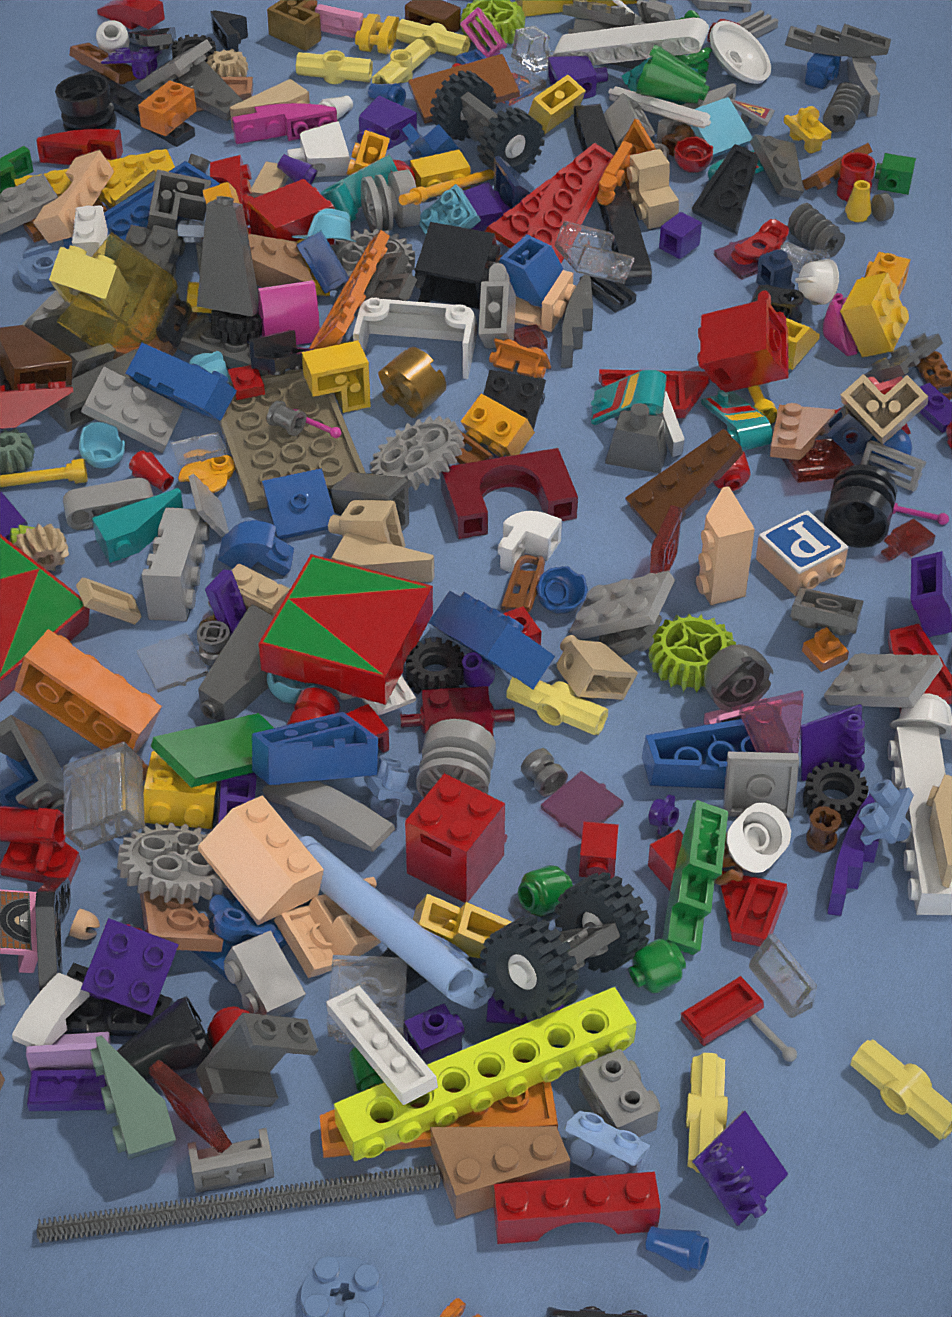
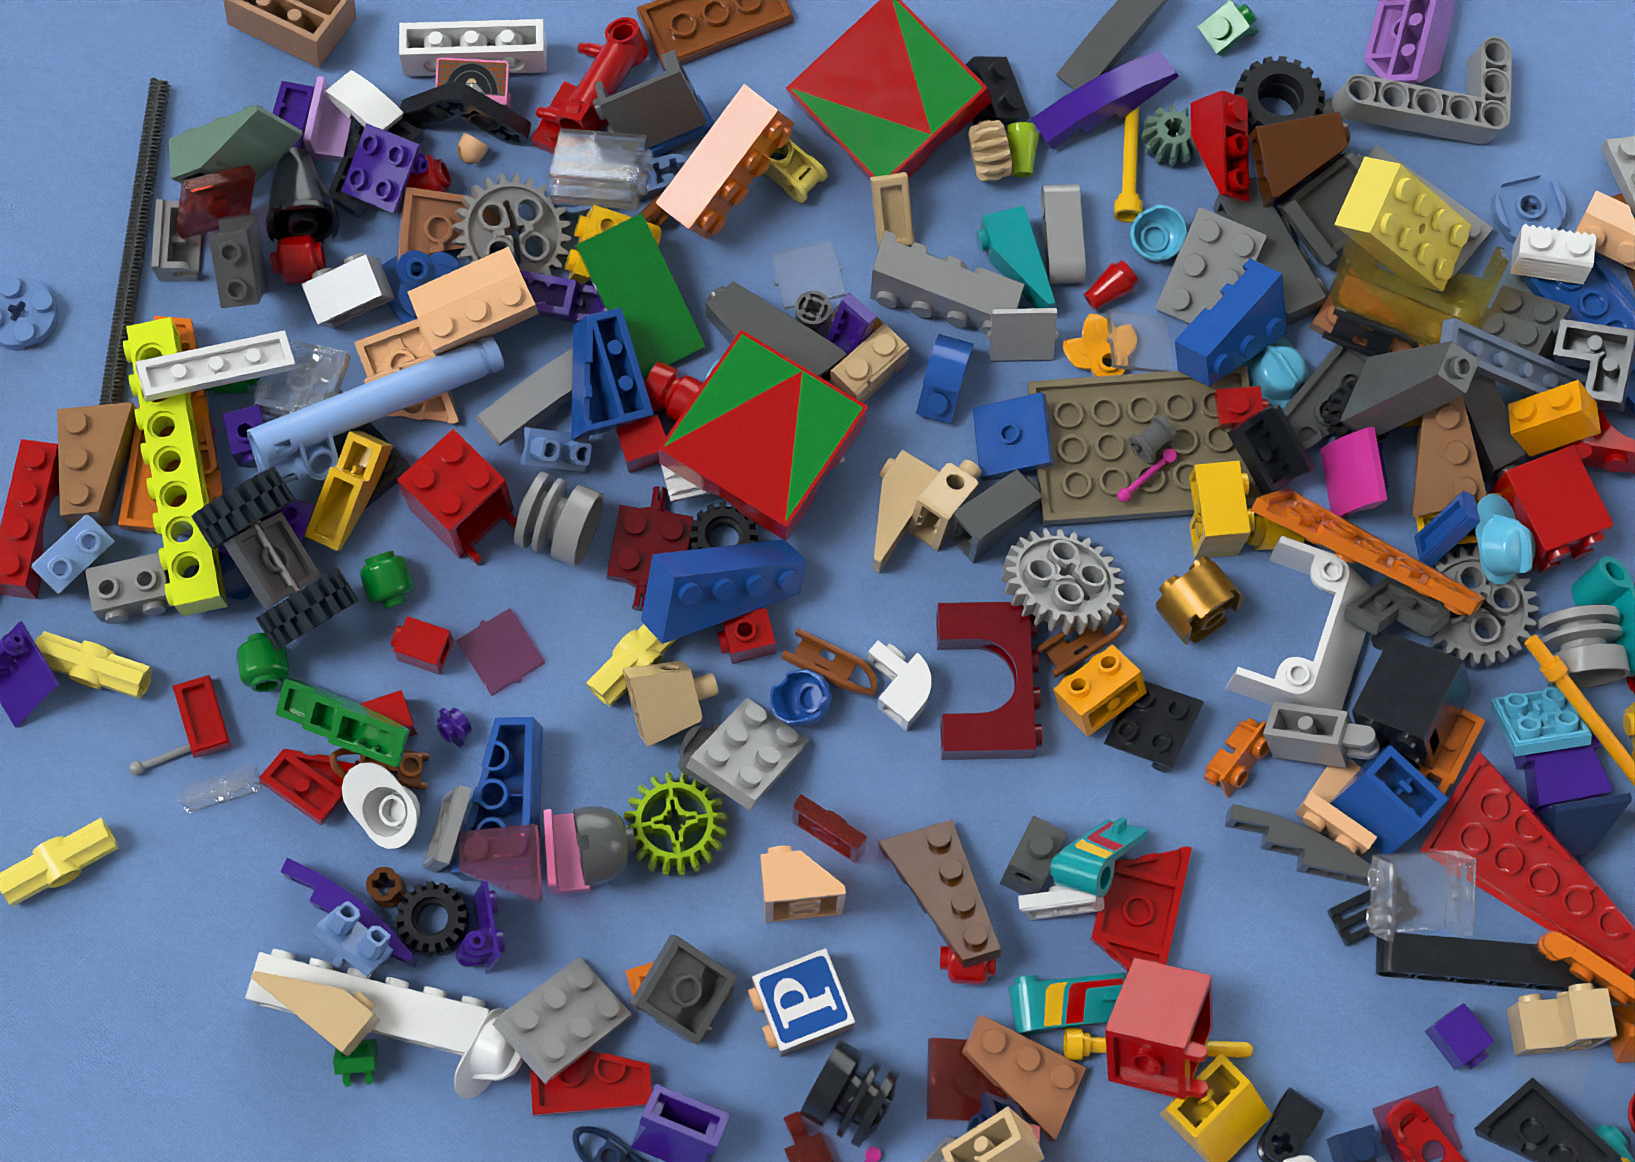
camera: 100 degrees right, 25 degrees up
(530, 337) = (1284, 780): clear red tile -> none
(541, 769) = (551, 614): flat silver wheel -> none

